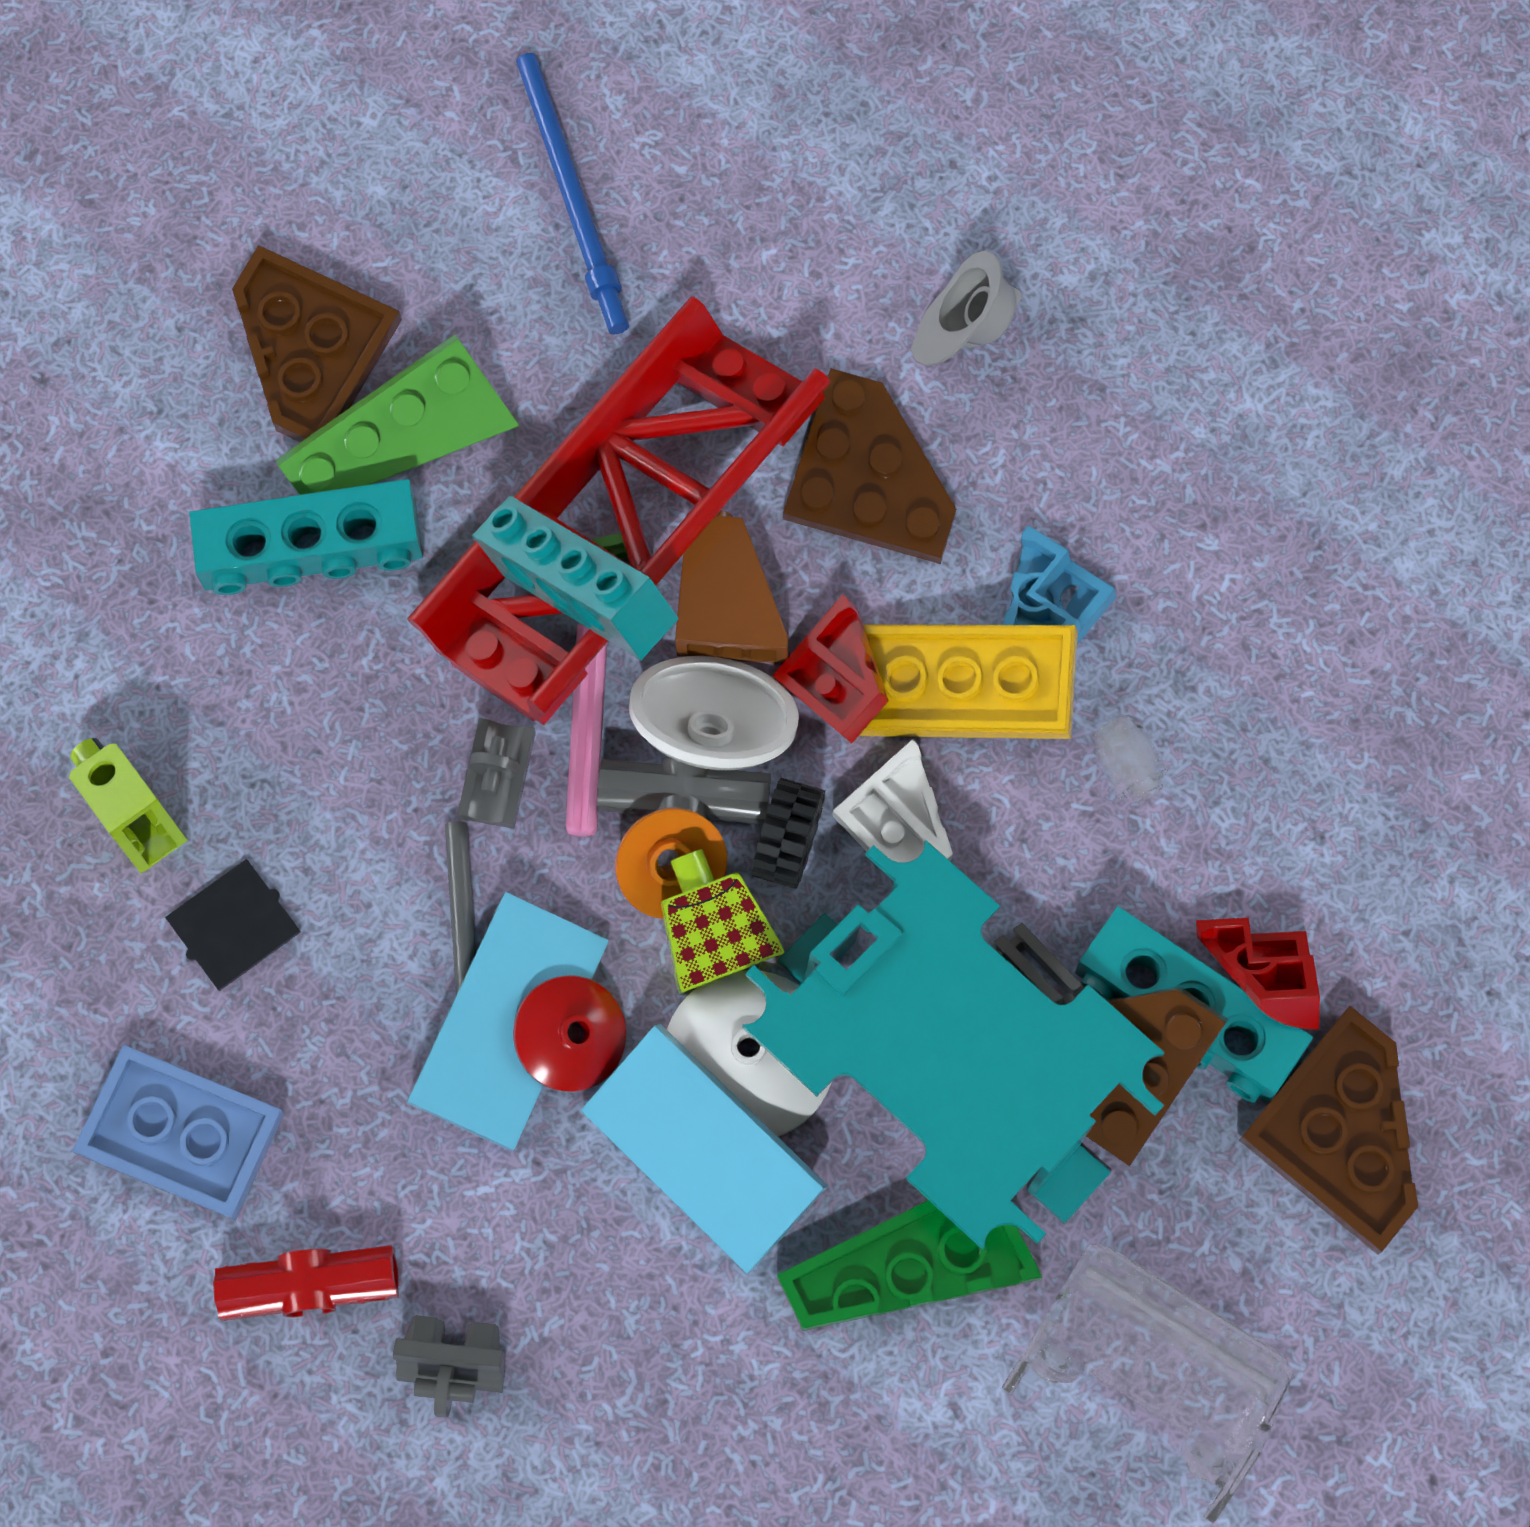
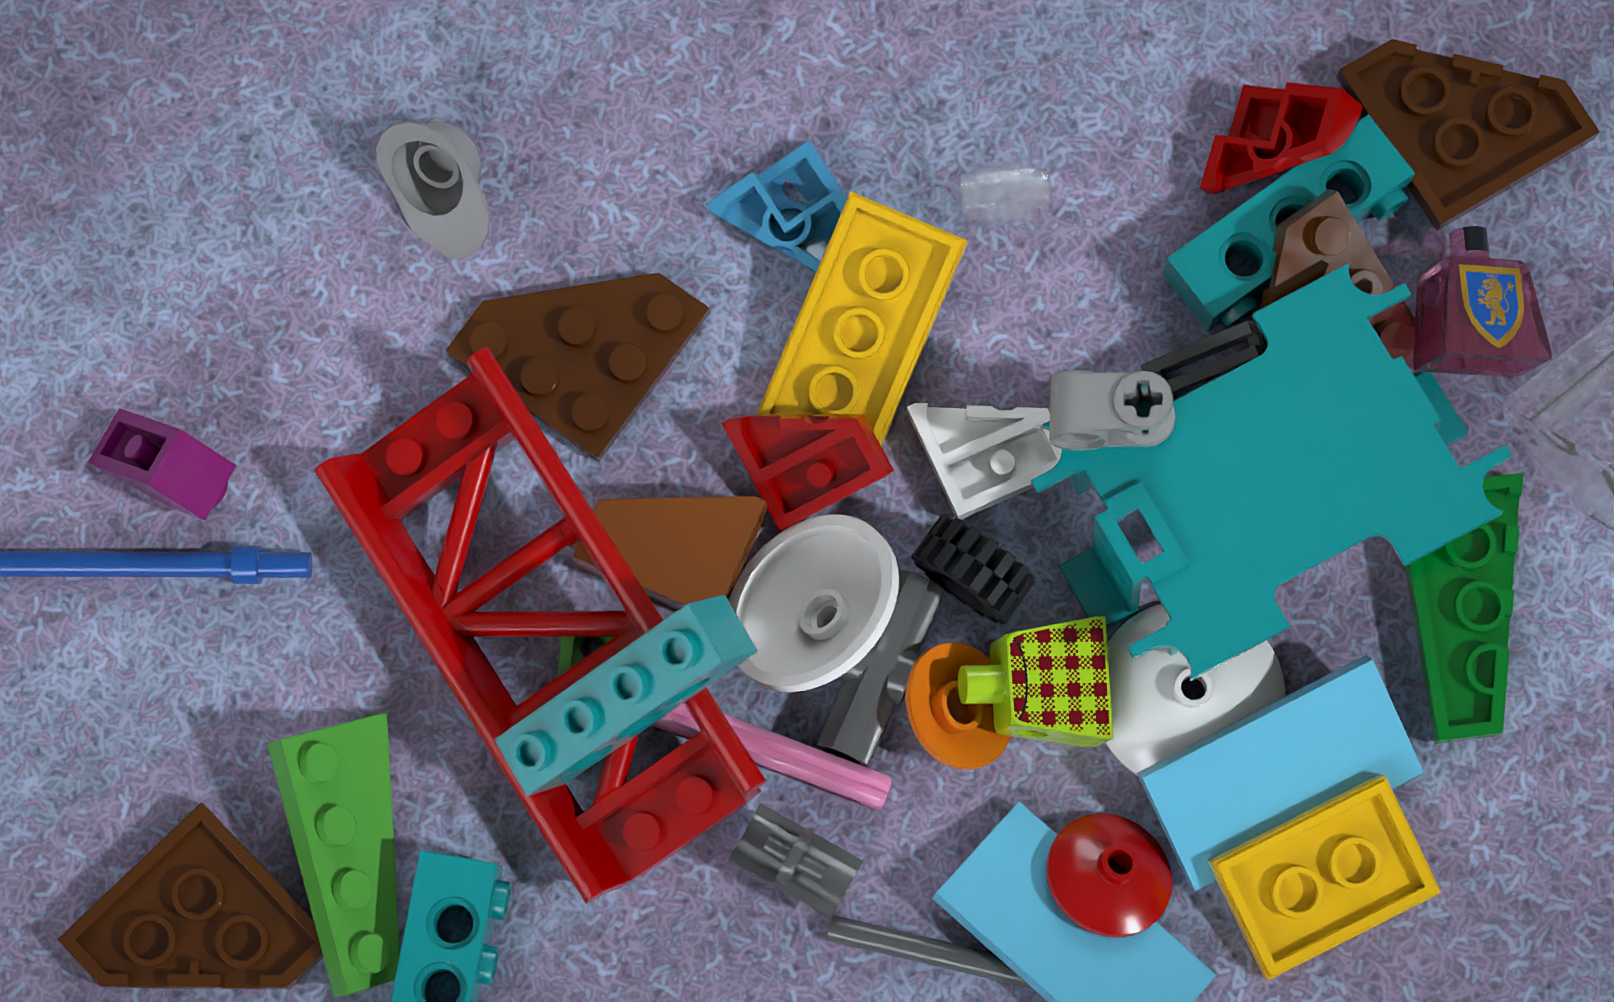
camera: 70 degrees left, 5 degrees up
(627, 1215) = (1324, 876): none -> yellow tile
(659, 193) = (163, 463): none -> magenta slope
(951, 877) = (1101, 409): none -> light grey piece
(1171, 1191) = (1478, 313): none -> clear pink torso

